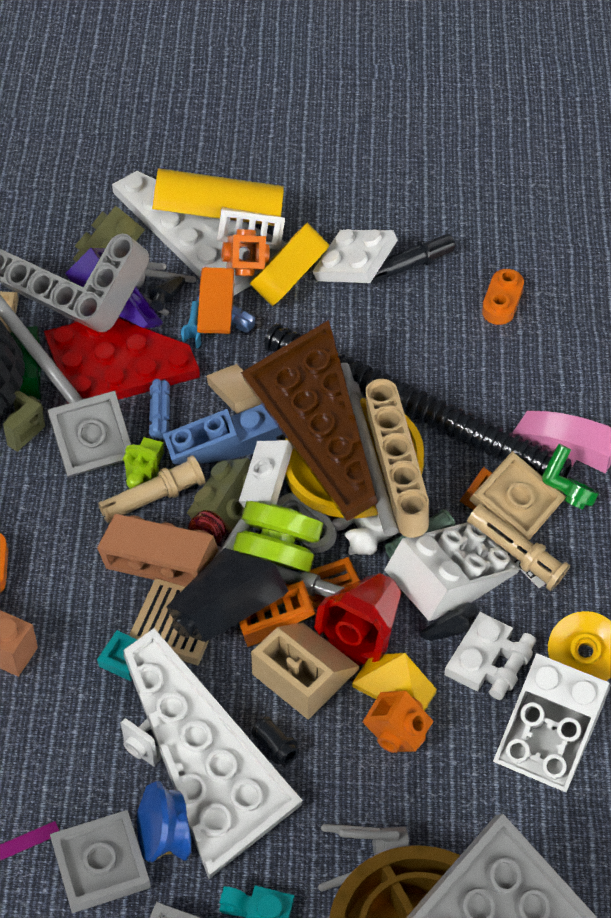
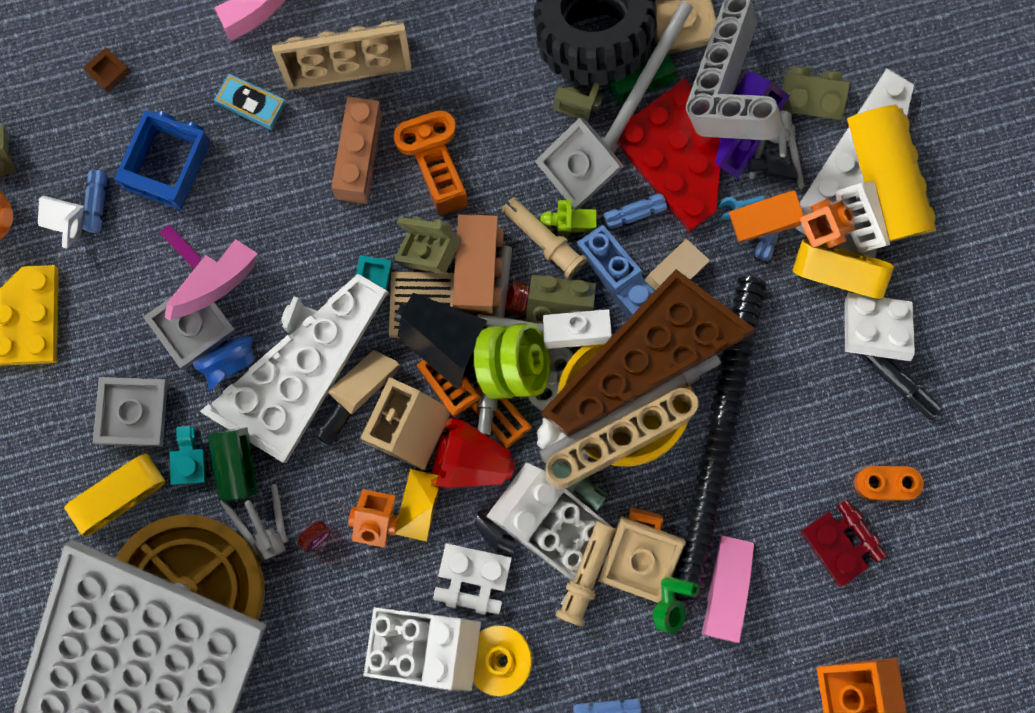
camera: 70 degrees right, 25 degrees up
(60, 808) = (211, 280): none -> bright pink slope
(68, 569) = (447, 198): none -> orange slope
(116, 587) = (427, 245): none -> olive bracket
(240, 692) = (363, 380): none -> tan slope
(285, 854) = (232, 464): none -> dark green brick
(396, 793) = (314, 536): none -> clear red tile
(550, 352) = (835, 549): none -> dark red plate

